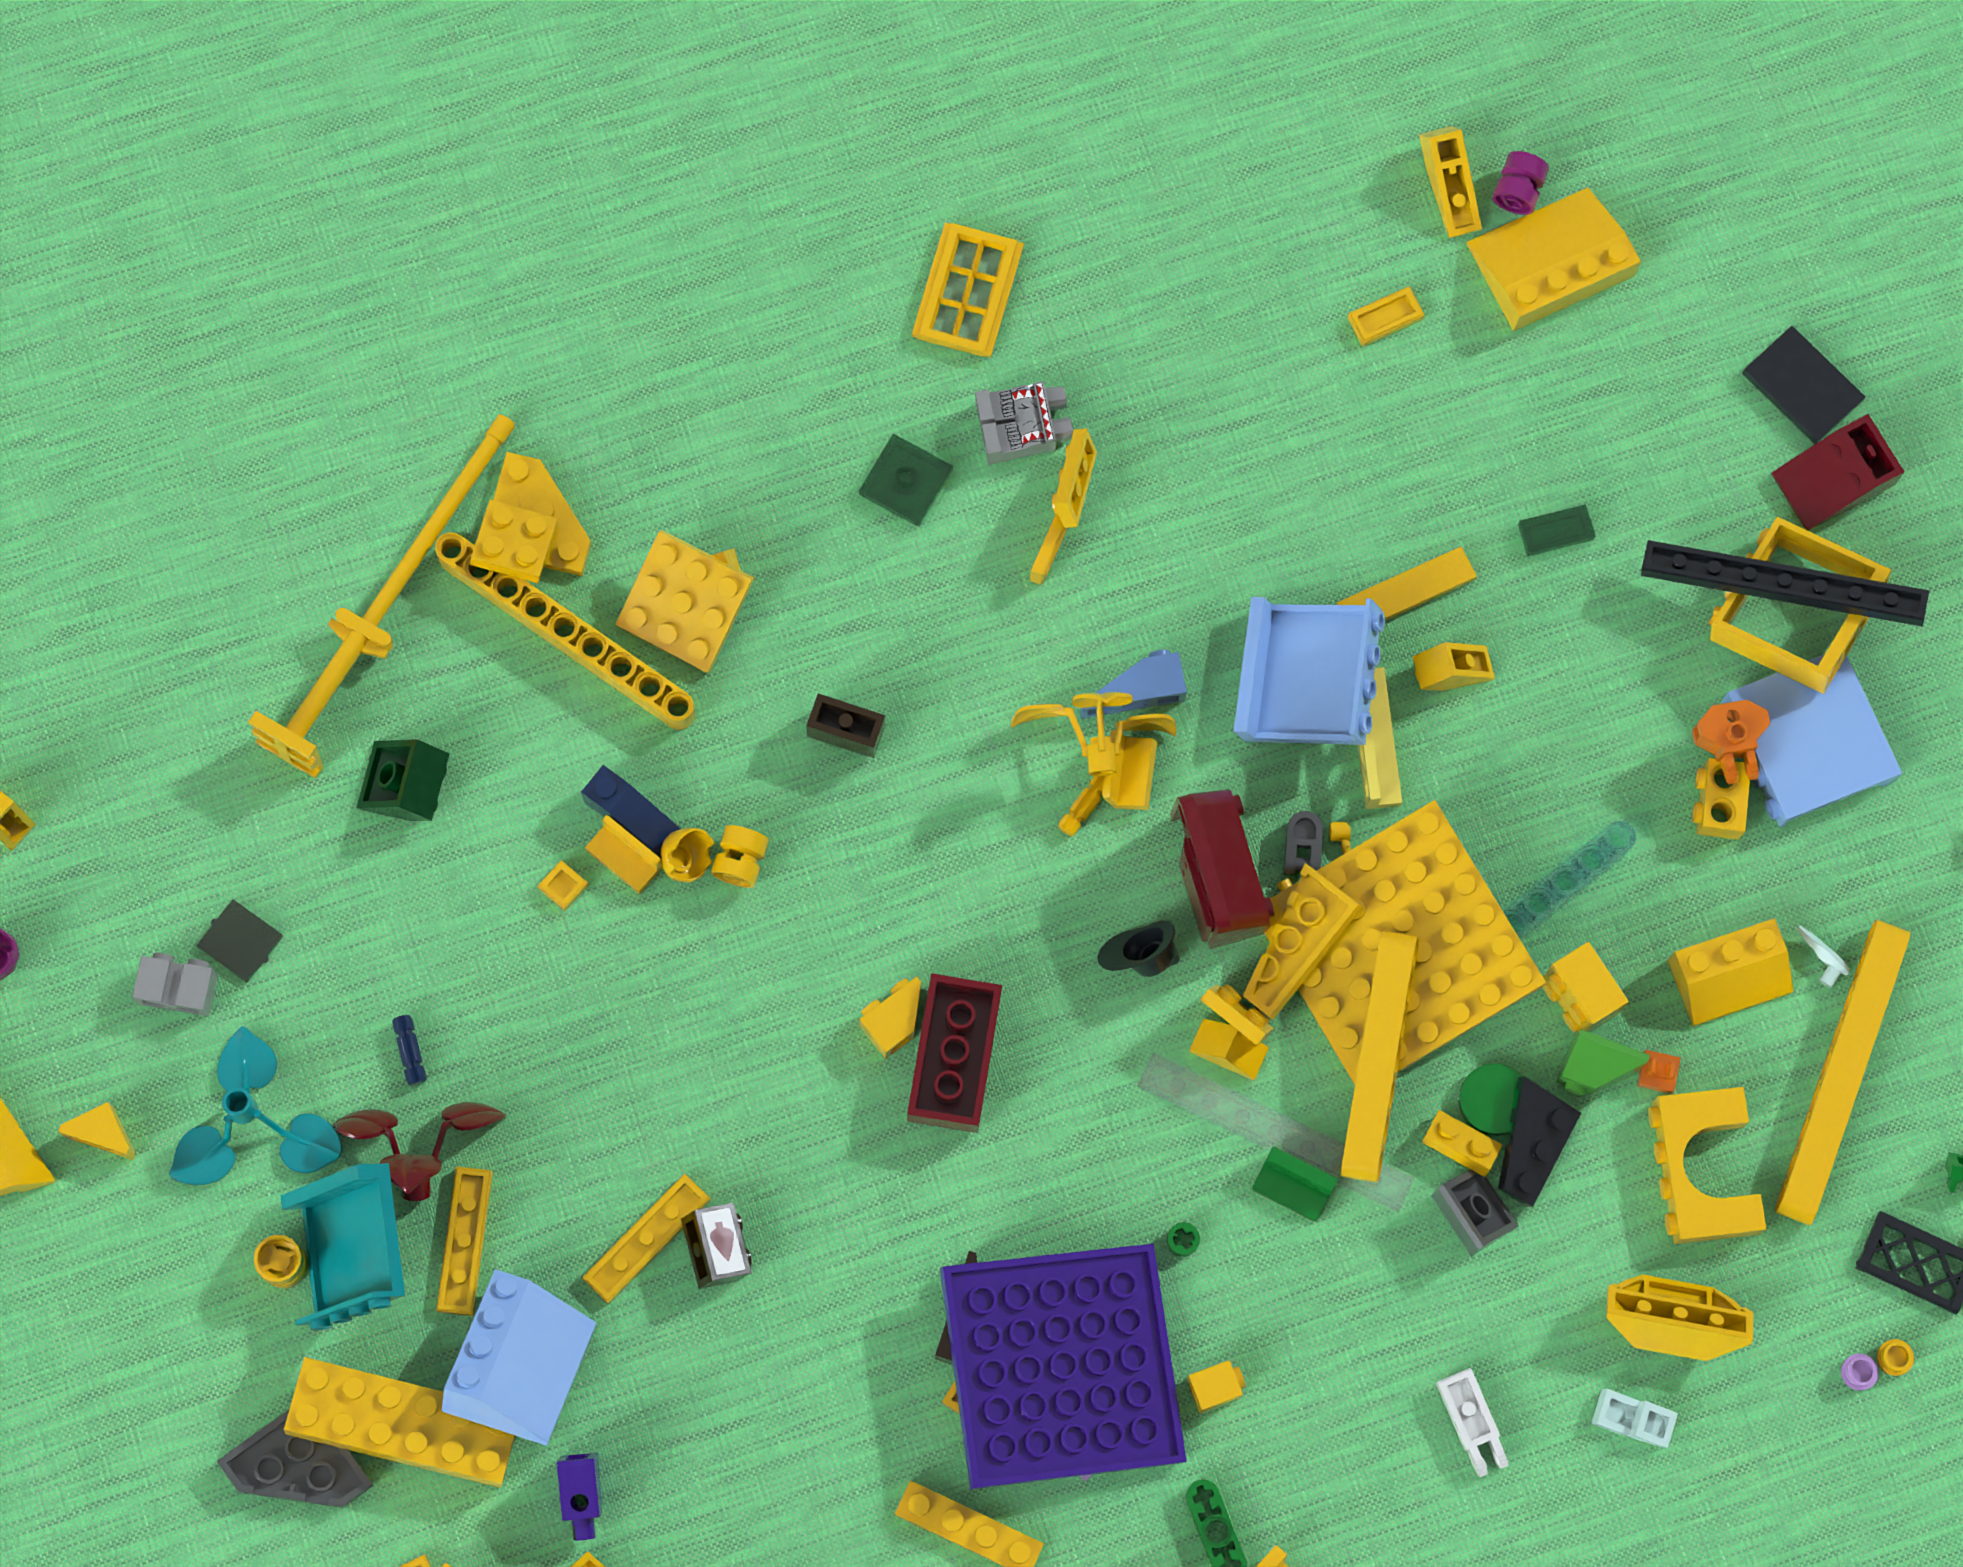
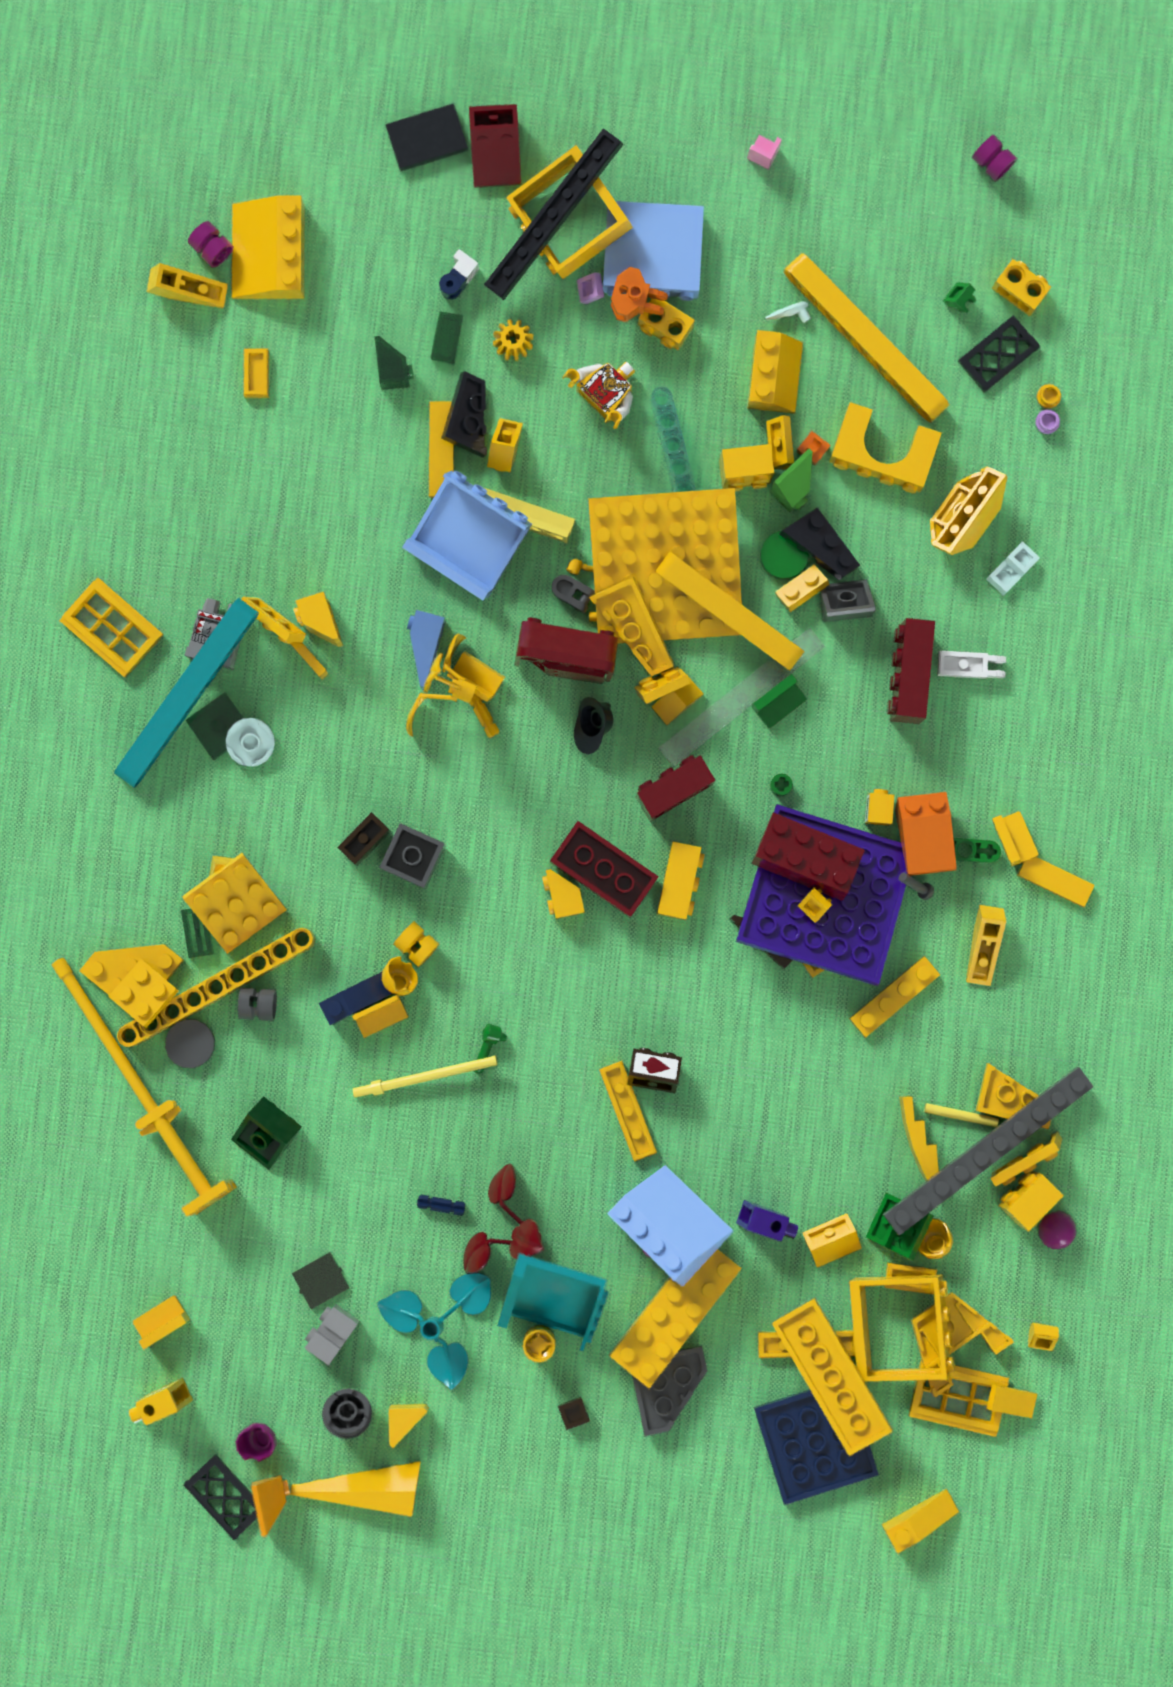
camera: 65 degrees left, 10 degrees up
(78, 1050) = (347, 1413): none -> dark grey cone
(96, 761) = (160, 1321): none -> yellow panel
(207, 1353) = (573, 1413): none -> dark brown plate
(464, 1241) = (577, 1223): yellow tile -> none
(476, 632) = (190, 1043): none -> dark grey tile
(529, 898) = (378, 1087): none -> light yellow bar
(563, 885) = (381, 1062): yellow tile -> none
(565, 687) = (266, 1004): none -> dark grey wheel
(613, 567) = (191, 954): none -> clear green tile
(664, 1010) = (490, 1035): none -> green piece
(853, 797) = (412, 856): none -> dark grey brick
(903, 526) = (250, 742): none -> light aqua tile
(928, 415) = (186, 692): none -> teal beam
(987, 1163) = (680, 881): none -> yellow brick
(1039, 1350) = (815, 905): none -> yellow tile
(1100, 1312) = (808, 856): none -> dark red brick
(1108, 534) = (317, 617): none -> yellow slope
(1108, 1094) = (674, 787): none -> dark red brick
(1133, 1502) = (924, 891): none -> dark grey piece
(1211, 1463) = (926, 833): none -> orange slope
(1422, 1340) = (912, 671): none -> dark red brick
(1463, 601) = (466, 415): none -> black wing
(1480, 478) = (392, 366): none -> clear green slope
(1593, 759) = (605, 389): none -> torso
(1599, 601) = (521, 336): none -> yellow gear
(1642, 1020) = (780, 438): none -> yellow panel
(1643, 508) = (460, 275): none -> leg
(1717, 680) = (590, 288): none -> lavender plate

